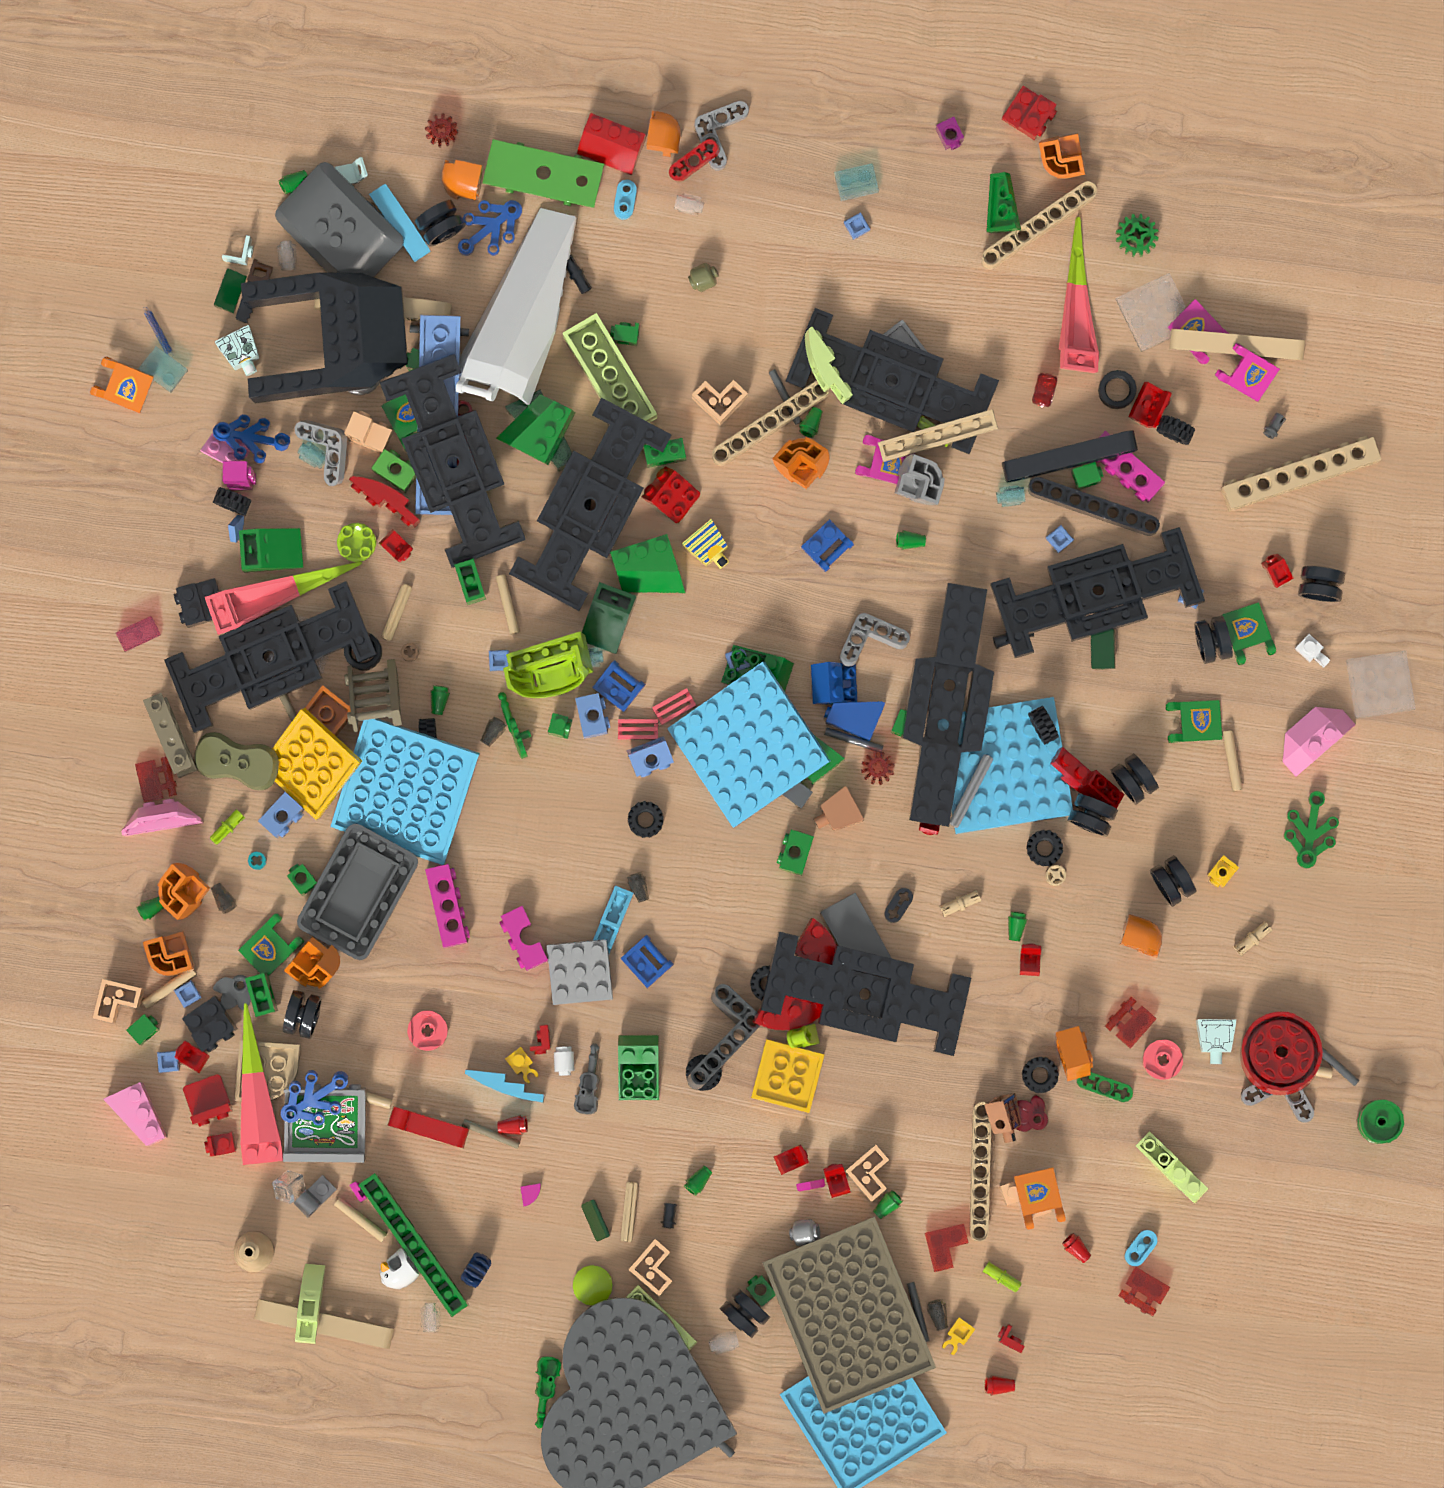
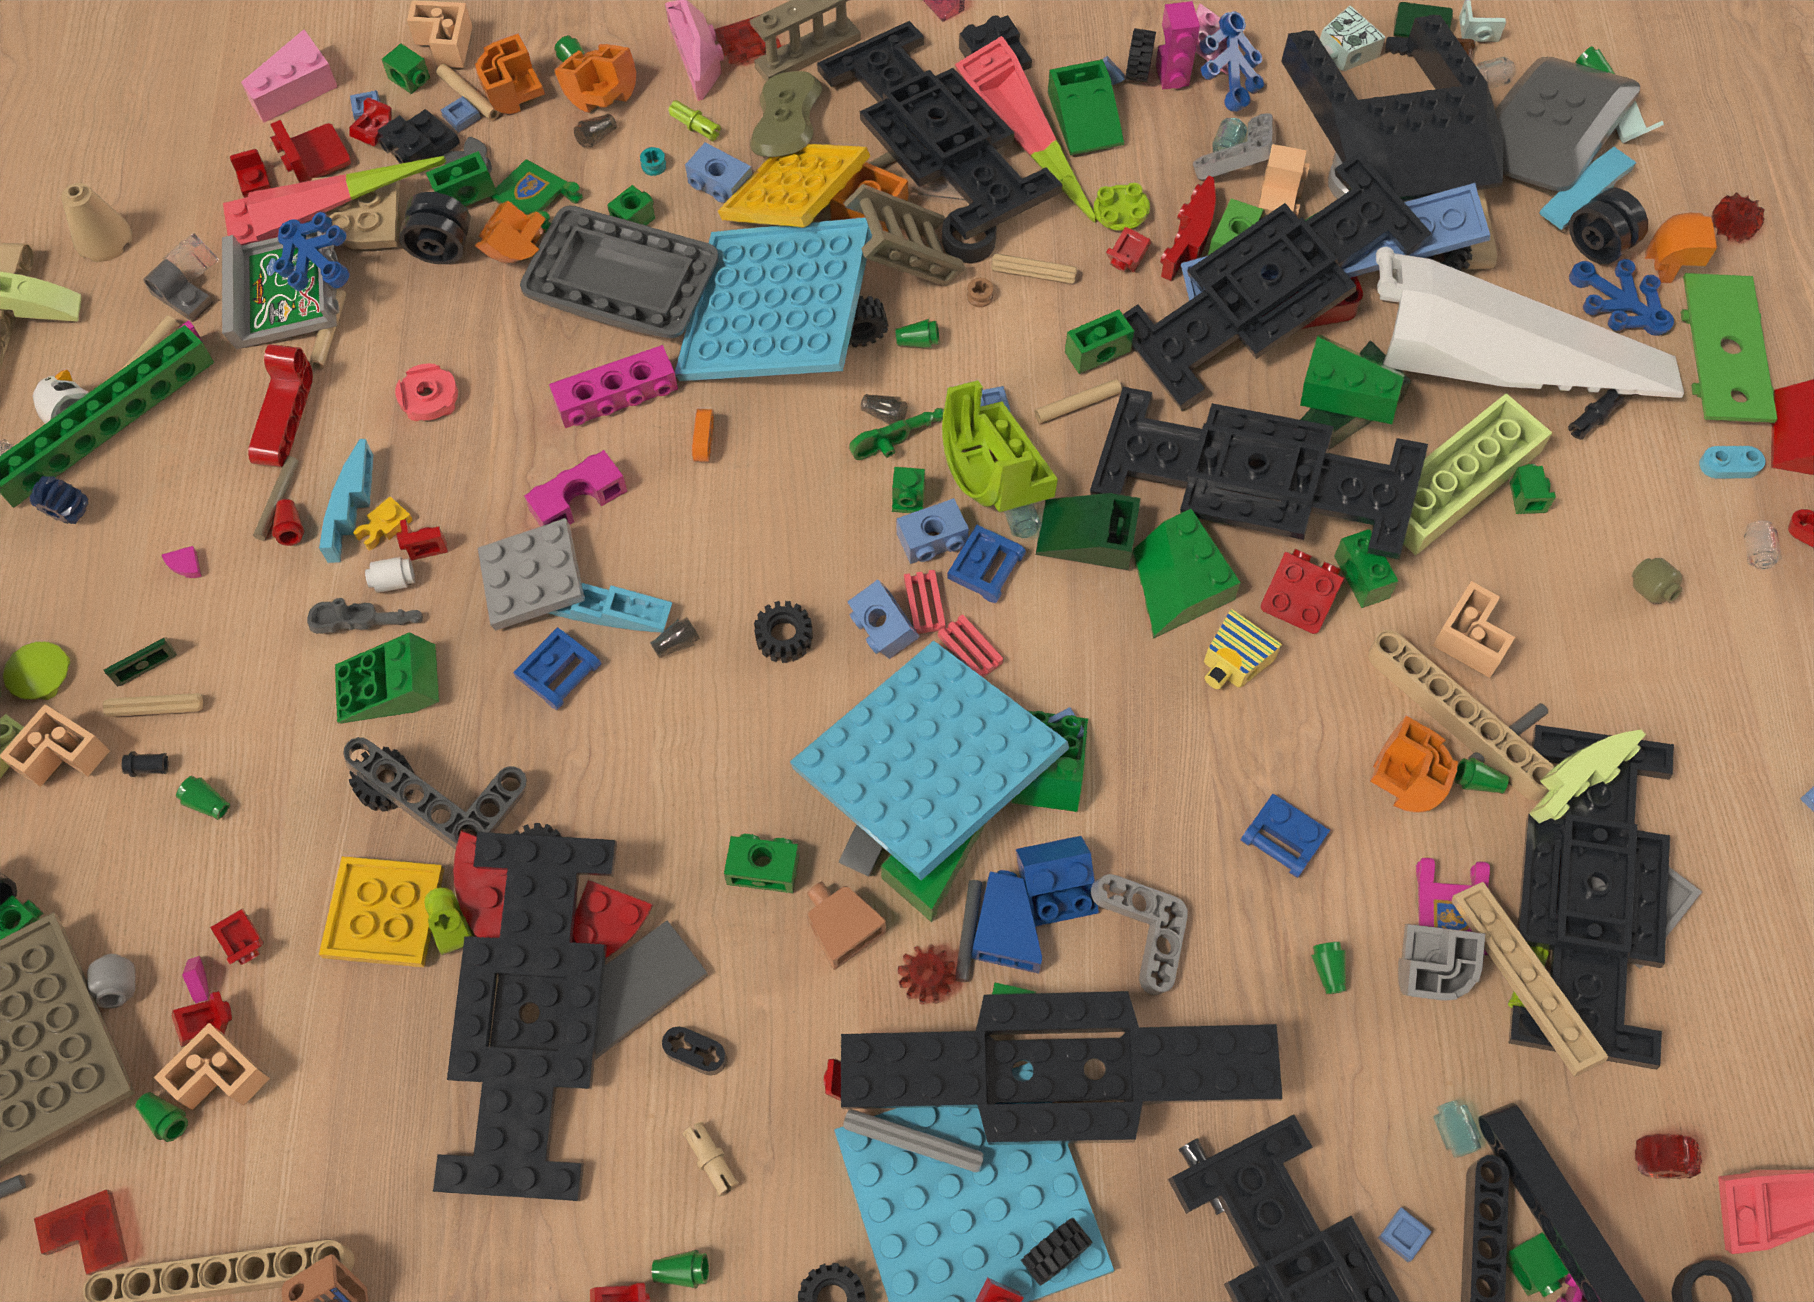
camera: 80 degrees right, 20 degrees down
(492, 851) = (703, 435): none -> orange beam

